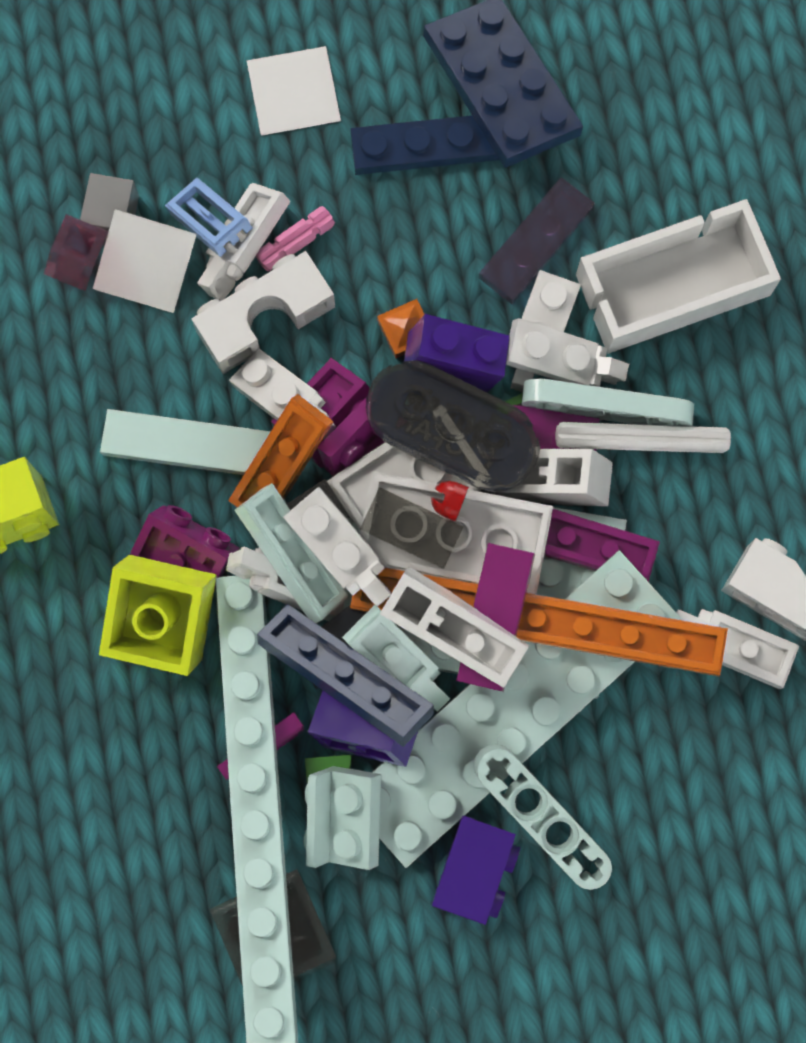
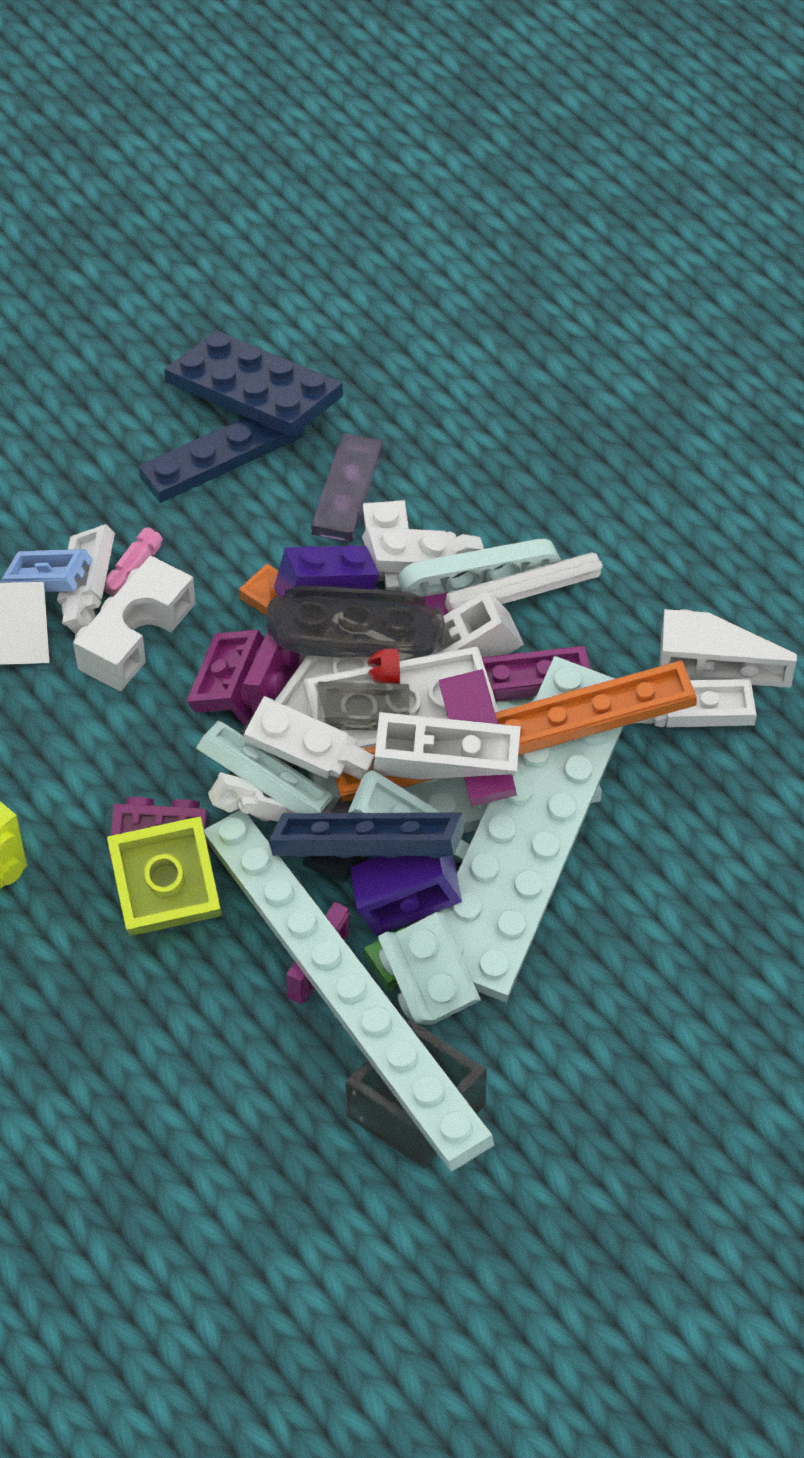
camera: 25 degrees left, 25 degrees down
(180, 442) = (118, 751): light aqua tile -> none
(273, 386) = (187, 673): white hinge -> none
(284, 450) = (214, 700): orange tile -> none
(293, 90) = (71, 464): white sticker -> none
(475, 871) = (572, 968): dark purple brick -> none
(542, 817) = (610, 885): light aqua beam -> none
(677, 277) = (472, 472): white piece -> none

